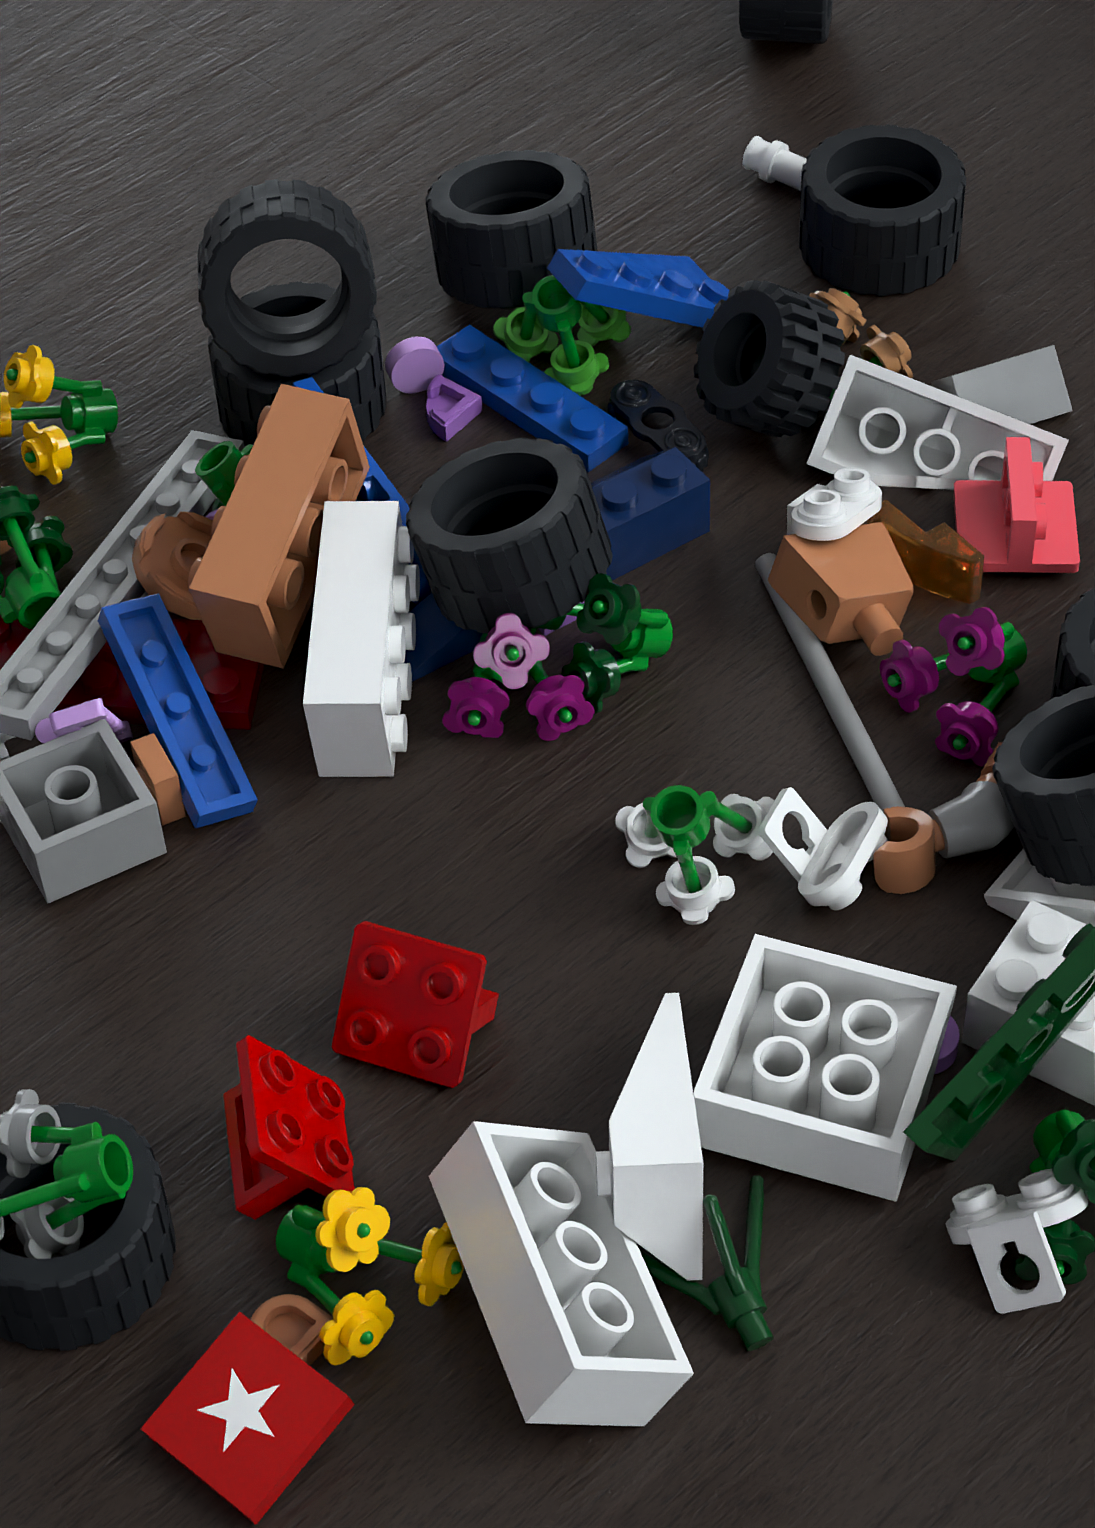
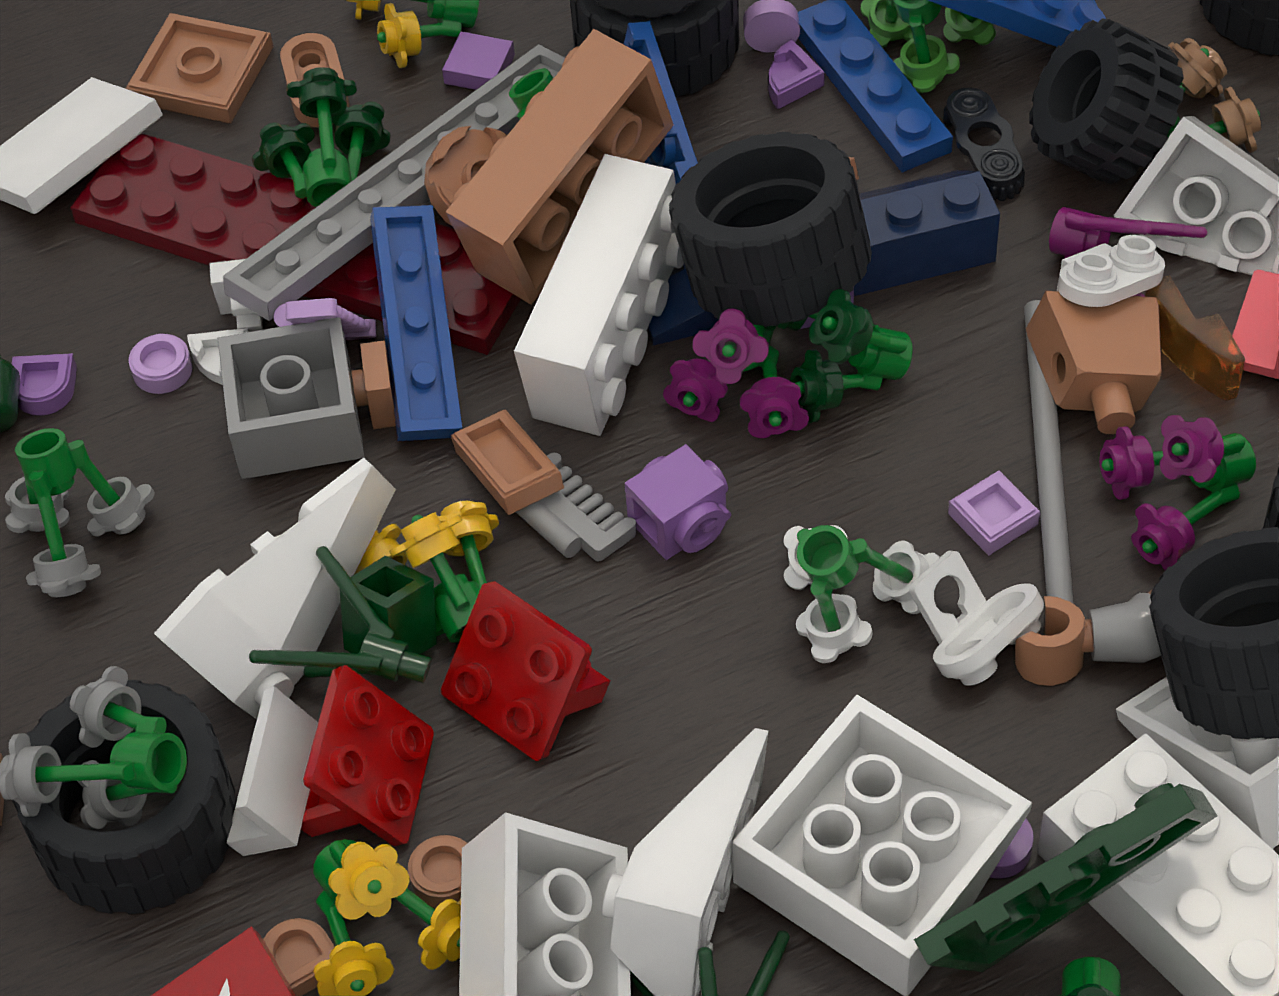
camera: 20 degrees right, 5 degrees up
(132, 460) = (476, 60): none -> medium lavender tile
(137, 1026) = (279, 594): none -> white wedge
(202, 1170) = (272, 784): none -> white panel
(259, 985) = (399, 598): none -> dark green brick
(273, 1022) = (379, 653): none -> dark green plant
(290, 896) = (459, 531): none -> yellow plant
(316, 819) = (507, 461): none -> nougat tile
(387, 860) = (570, 527): none -> light grey piece
(411, 1209) = (436, 869): none -> nougat tile
(500, 814) = (678, 502): none -> medium lavender brick
(785, 482) = (1079, 231): none -> magenta plant
(800, 751) = (993, 512): none -> lavender tile

